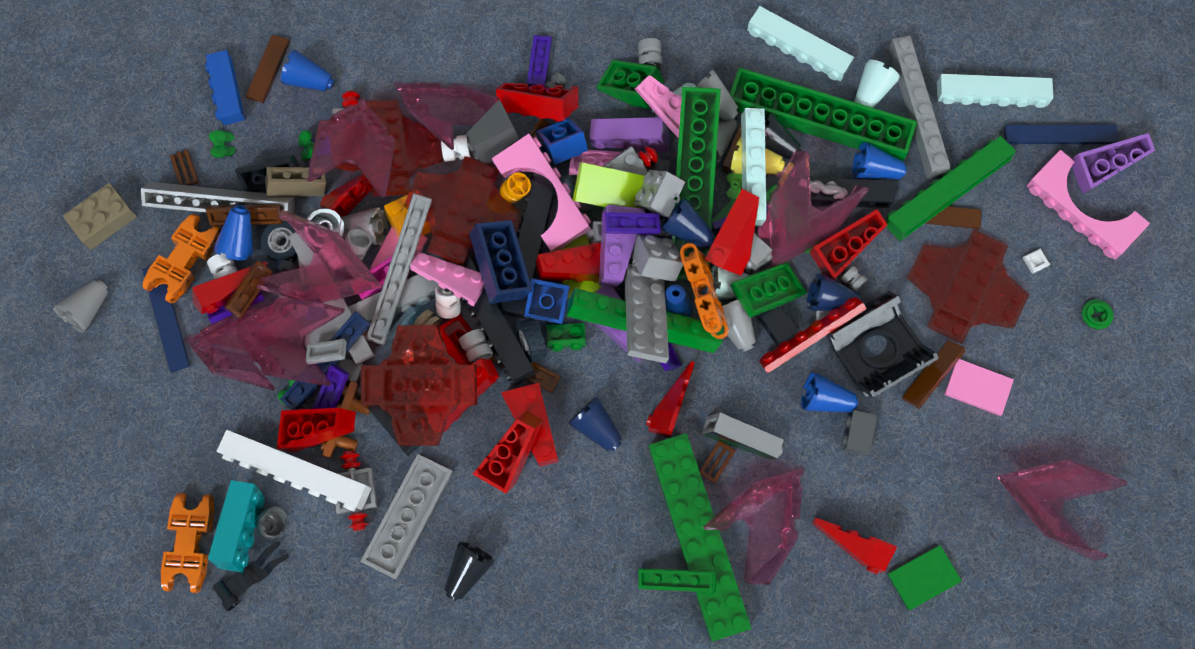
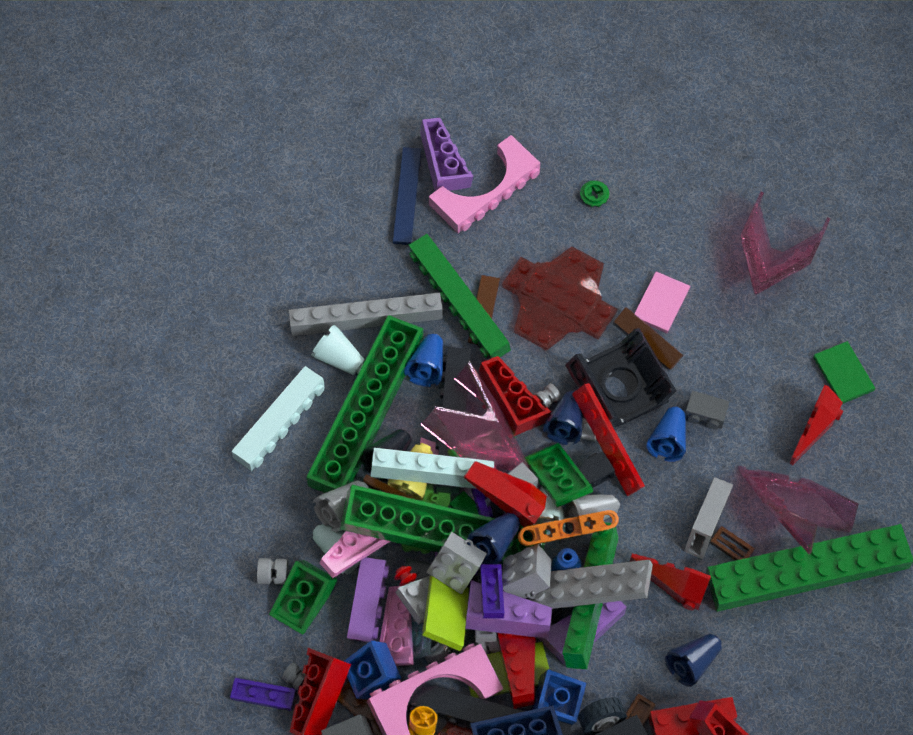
camera: 90 degrees left, 10 degrees down
(566, 336) = (595, 680): green bracket -> none
(677, 580) = (855, 589): green tile -> none
(830, 189) = (456, 400): light grey animal -> none
(994, 90) = (354, 245): light aqua brick -> none
(1036, 261) = (537, 236): white tile -> none

